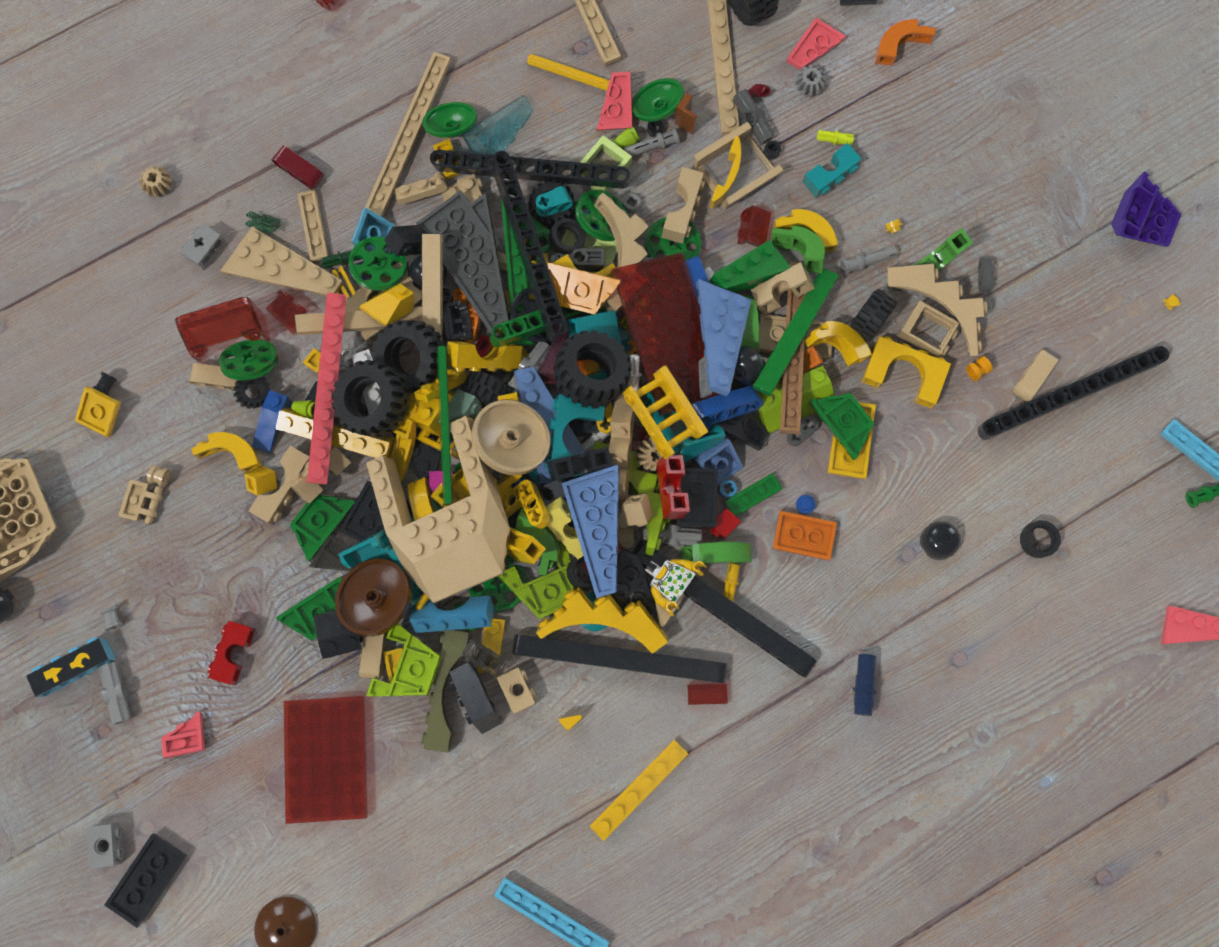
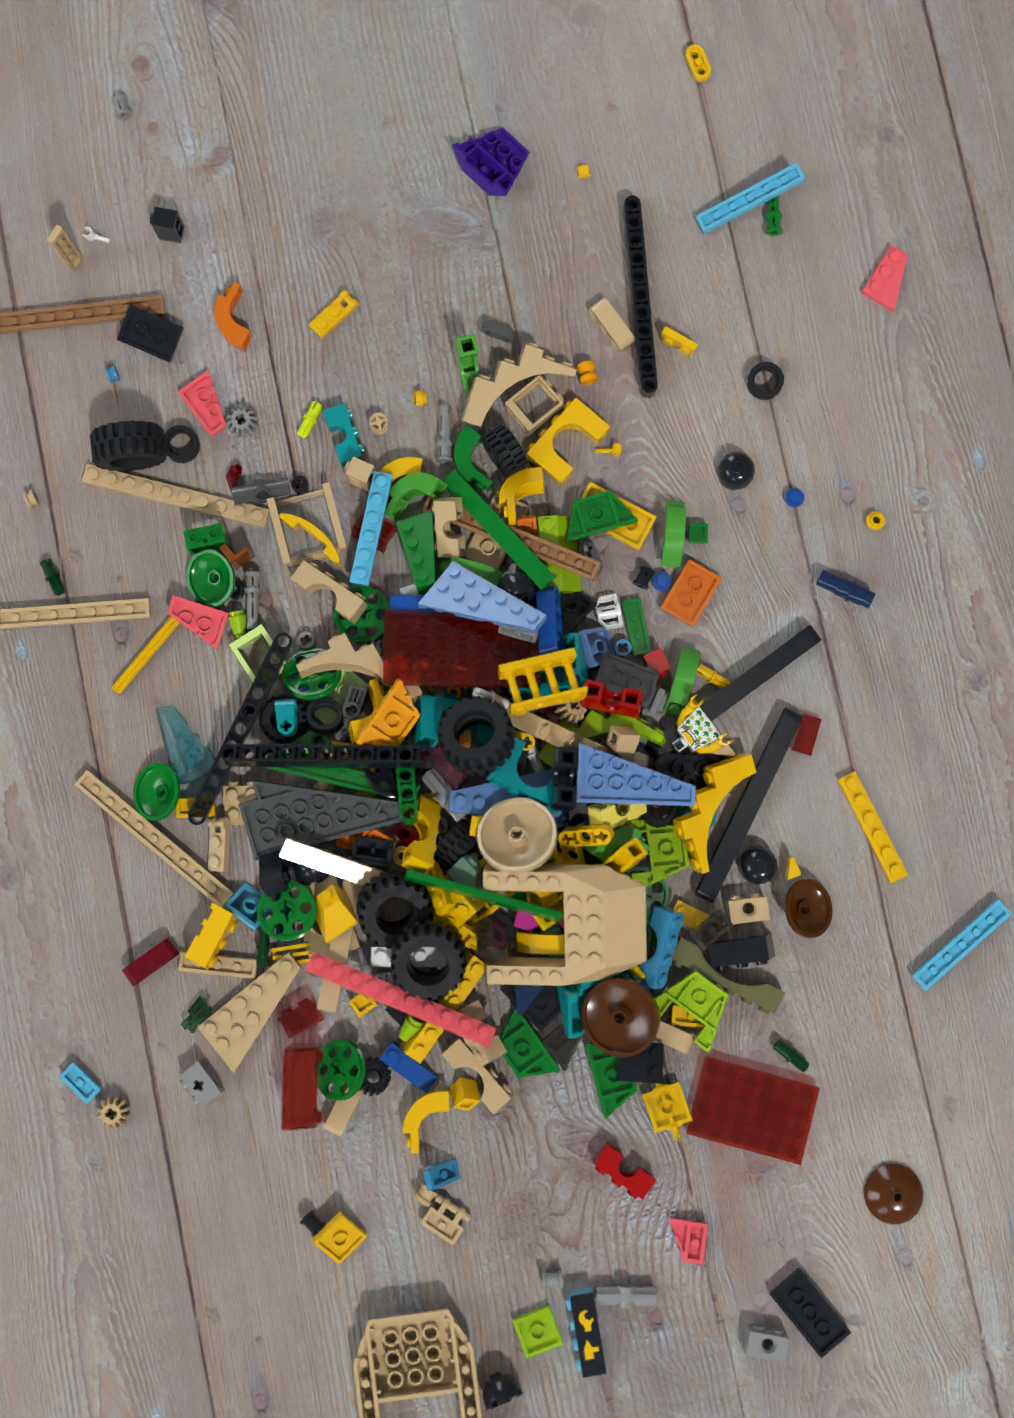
camera: 75 degrees left, 5 degrees up
(60, 621) = (537, 1331): none -> lime tile
(174, 146) = (80, 1082): none -> medium azure plate
(180, 483) = (441, 1174): none -> dark azure slope
(302, 674) = (667, 1108): none -> yellow plate
(334, 209) = (212, 937): none -> yellow wedge
(365, 502) = (525, 995): none -> dark blue slope
(389, 780) = (791, 1055): none -> dark green axle
(408, 451) = (491, 939): none -> clear smoke brick
(537, 758) = (808, 908): none -> reddish brown dish
(563, 687) = (757, 865): none -> black cylinder
(692, 82) = (207, 537): none -> green window
(754, 220) = (371, 528): none -> medium azure plate
(757, 464) = (609, 612): none -> white piece
(770, 24) = (190, 455): none -> black tyre
(802, 193) = (359, 473): none -> tan brick
(806, 485) = (643, 571): none -> black bush
(855, 193) = (377, 420): none -> tan wheel
(855, 498) = (673, 534): none -> bright green arch
(856, 281) = (464, 447): none -> green arch
(865, 523) = (698, 533): none -> green plate
(915, 420) = (615, 451): none -> yellow hand
(936, 605) = (794, 497): none -> blue plate
(938, 693) = (873, 526): none -> yellow plate
(941, 126) = (333, 314): none -> yellow plate
(1043, 450) = (677, 340): none -> yellow plate

